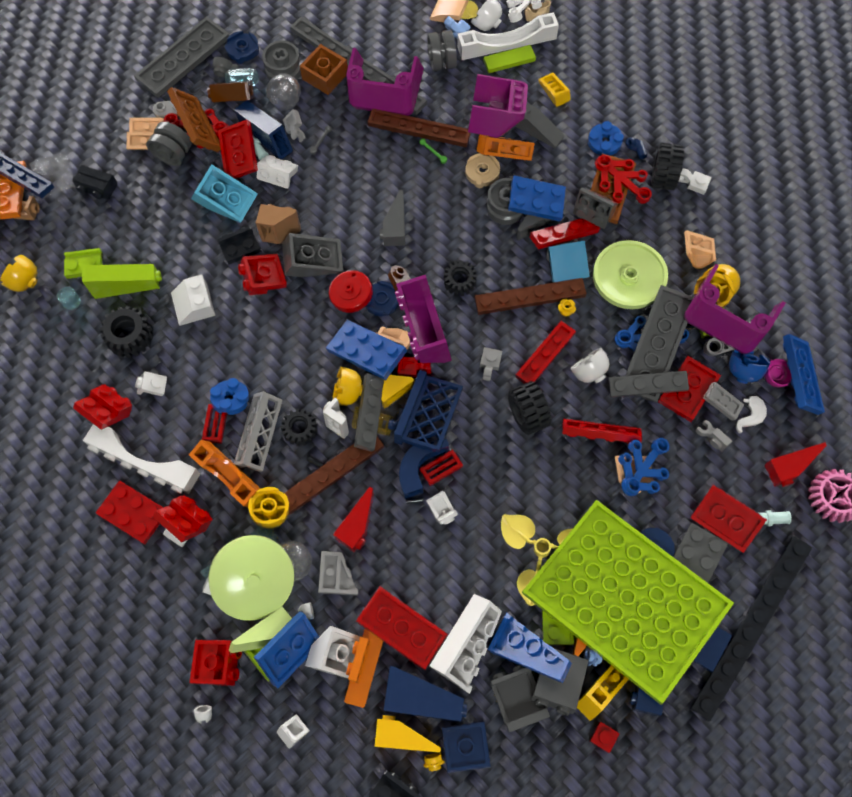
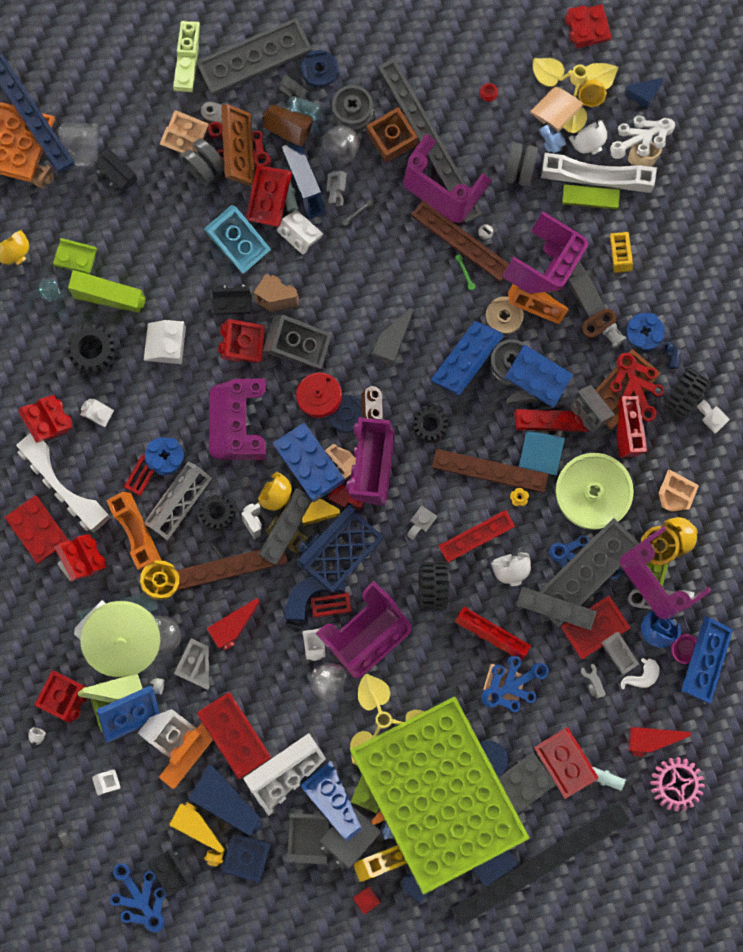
camera: 20 degrees right, 10 degrees up
(124, 75) = (186, 56): none -> yellowish green slope
(278, 343) = (228, 421): none -> magenta windscreen
(389, 15) = (488, 92): none -> red plate
(435, 114) = (483, 234): none -> white hinge
(467, 211) = (467, 357): none -> blue plate
(469, 536) = (327, 680): none -> clear cylinder
(489, 477) = (368, 634): none -> magenta windscreen
(564, 147) = (597, 323): none -> reddish brown plate
(582, 150) = (614, 335): none -> light grey bush
(635, 213) = (630, 428): none -> red slope

